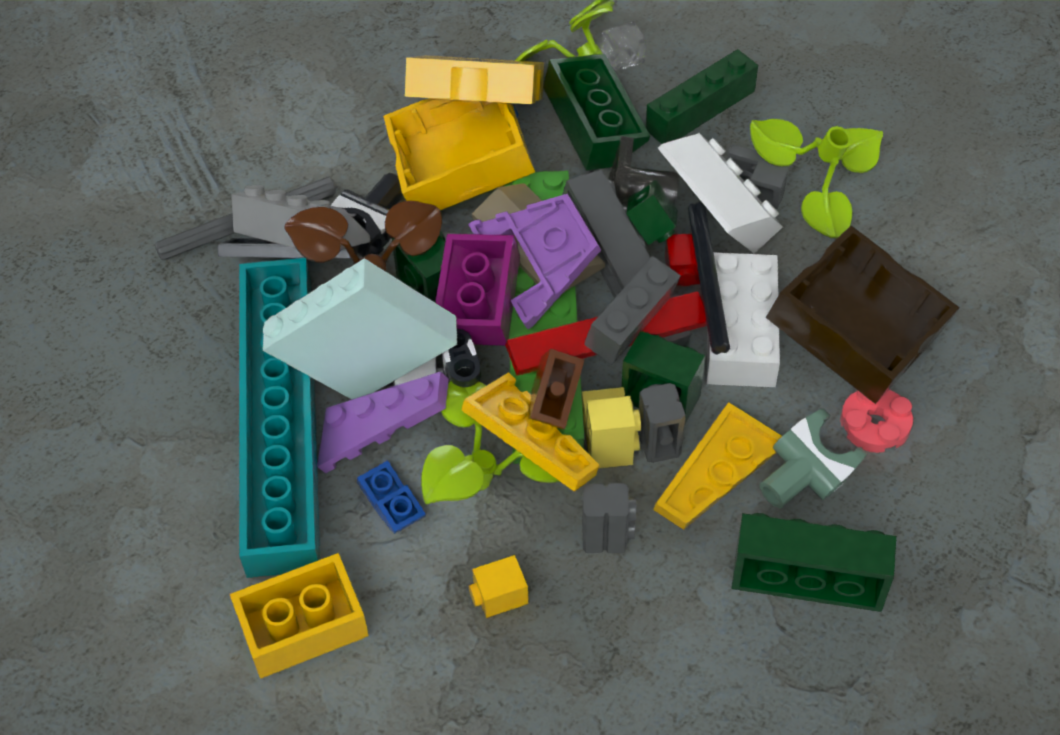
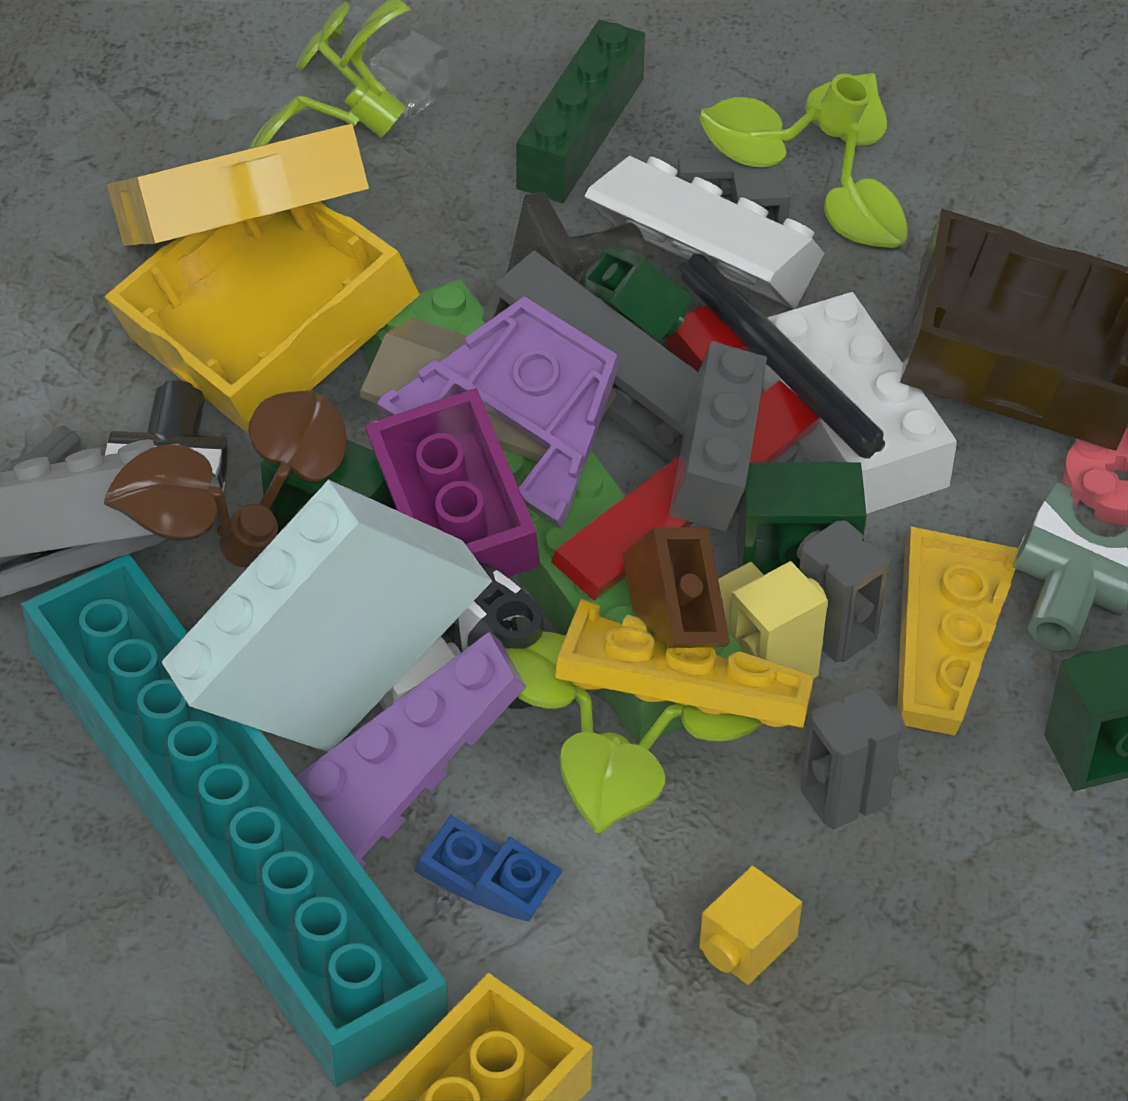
camera: 30 degrees left, 5 degrees down
(593, 108) = (438, 181): dark green slope -> none

